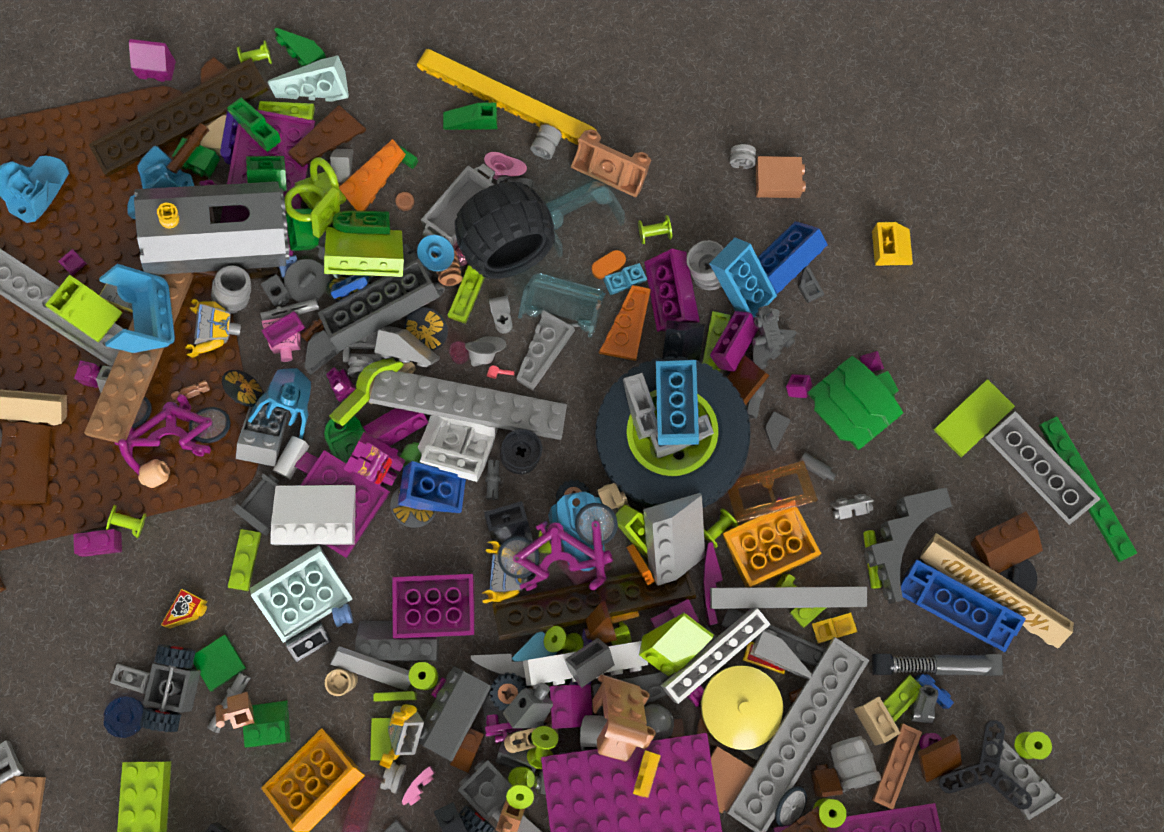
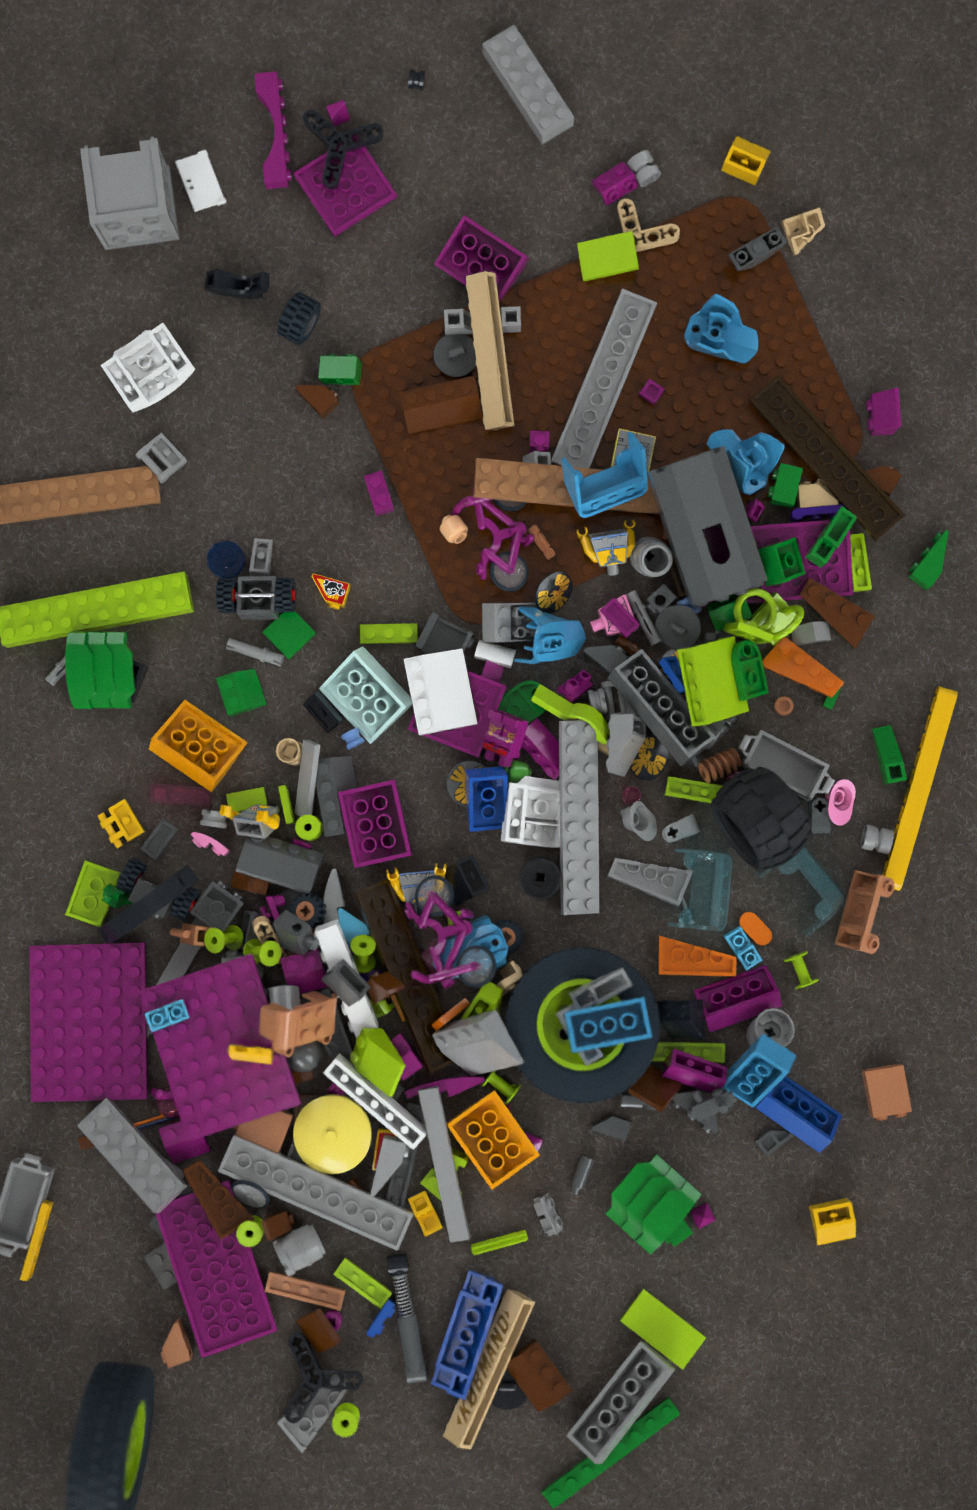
camera: 80 degrees right, 10 degrees up
(83, 308) = (601, 421): lime slope -> none
(126, 522) = (403, 515): lime piece -> none
(168, 220) = (698, 489): yellow wheel -> none
(189, 146) = (794, 479): reddish brown pin -> none
(238, 711) = (248, 663): nougat brick -> none
(255, 55) = (914, 516): lime piece -> none
(319, 79) = (900, 589): light aqua wedge -> none
(439, 246) = (729, 760): dark azure dish -> none
(492, 479) = (509, 854): dark grey pin -> none
(494, 371) = (619, 833): coral hand -> none
(743, 156) = (901, 1049): light grey wheel -> none
(767, 481) = (560, 1124): clear orange door -> none
(799, 386) = (662, 1144): magenta slope -> none
(877, 721) = (342, 1266): tan panel -> none
(897, 532) = (528, 1264): dark grey arch -> none
(923, 708) = (365, 1310): dark grey piece -> none

